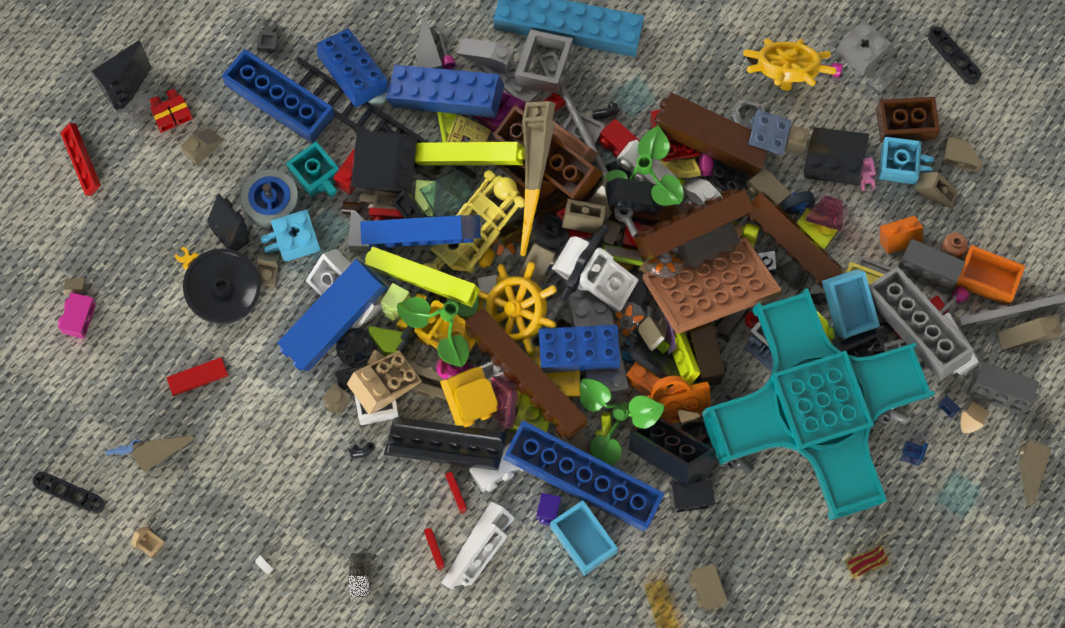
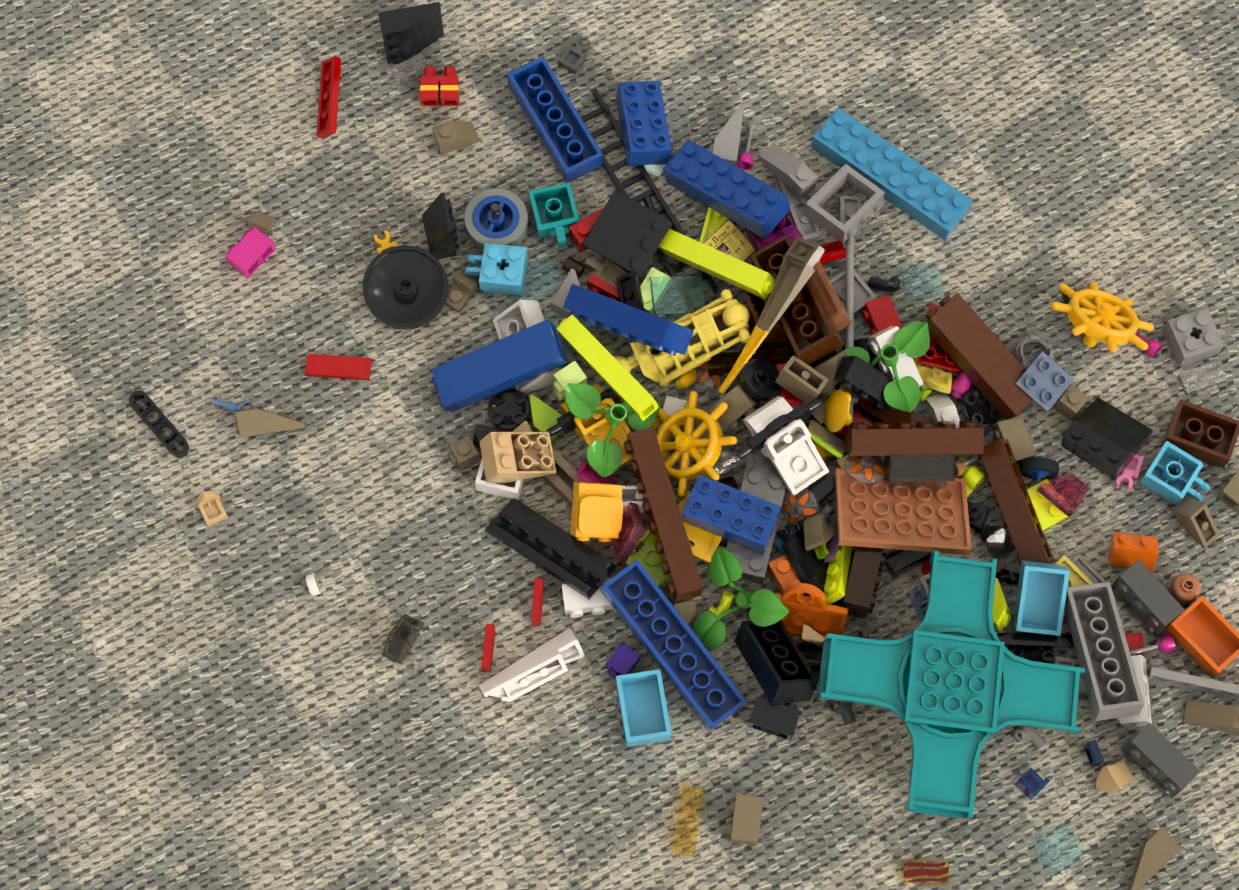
camera: 25 degrees right, 0 degrees up
(355, 452) = (458, 516): black arm -> none
(622, 228) = (837, 410): none -> yellow dish

